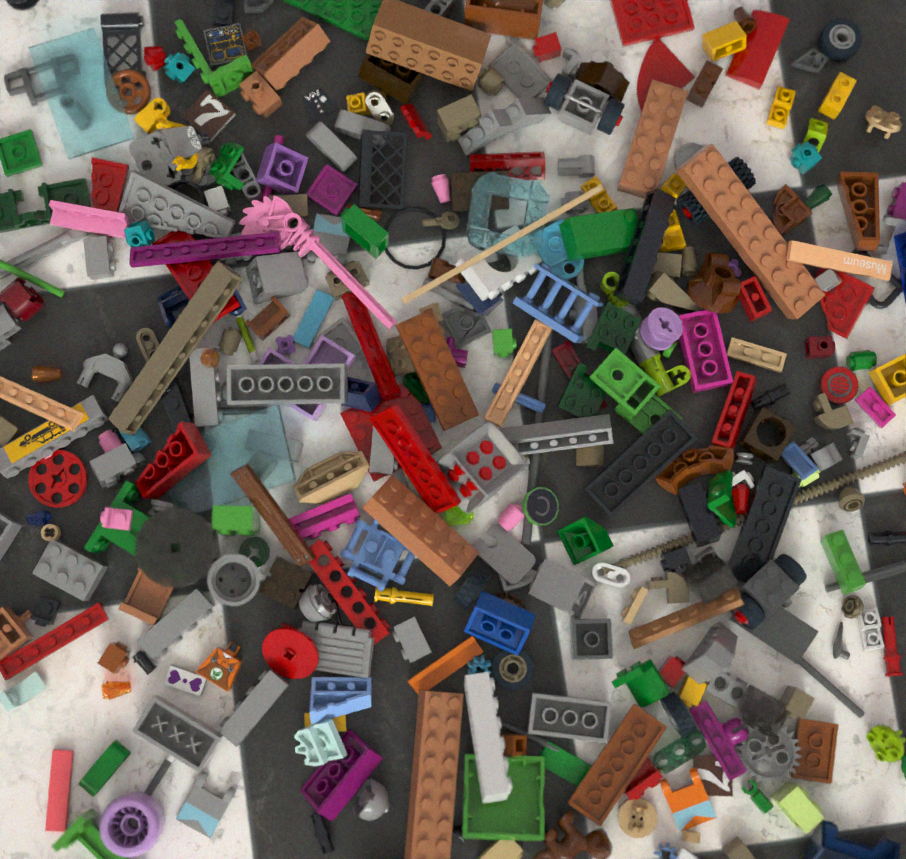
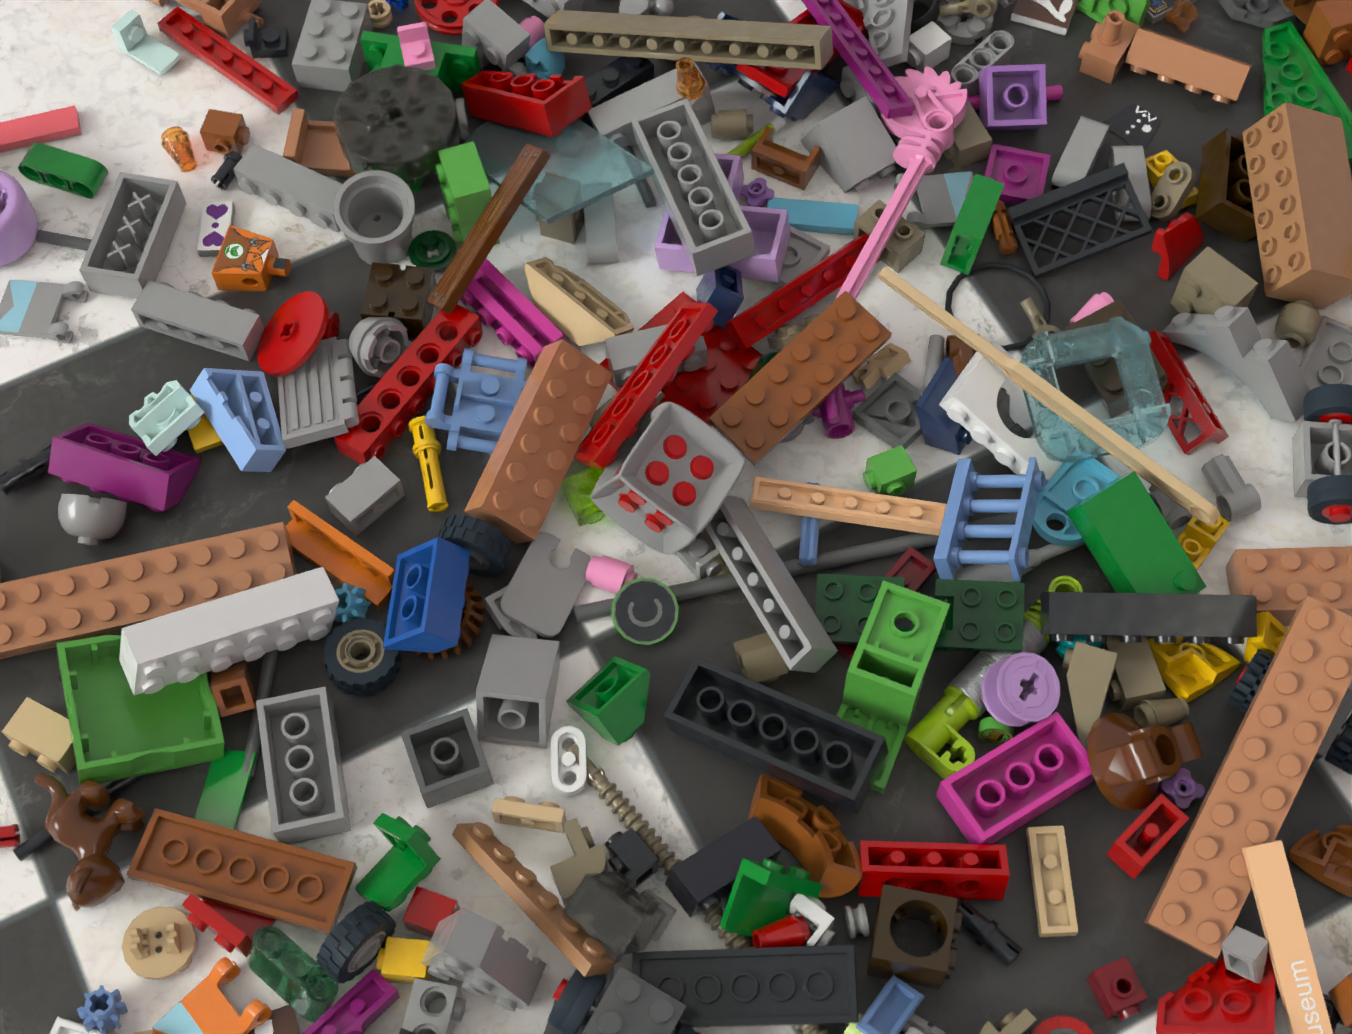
camera: 75 degrees right, 20 degrees down
(223, 165) = (961, 38): green bracket -> none

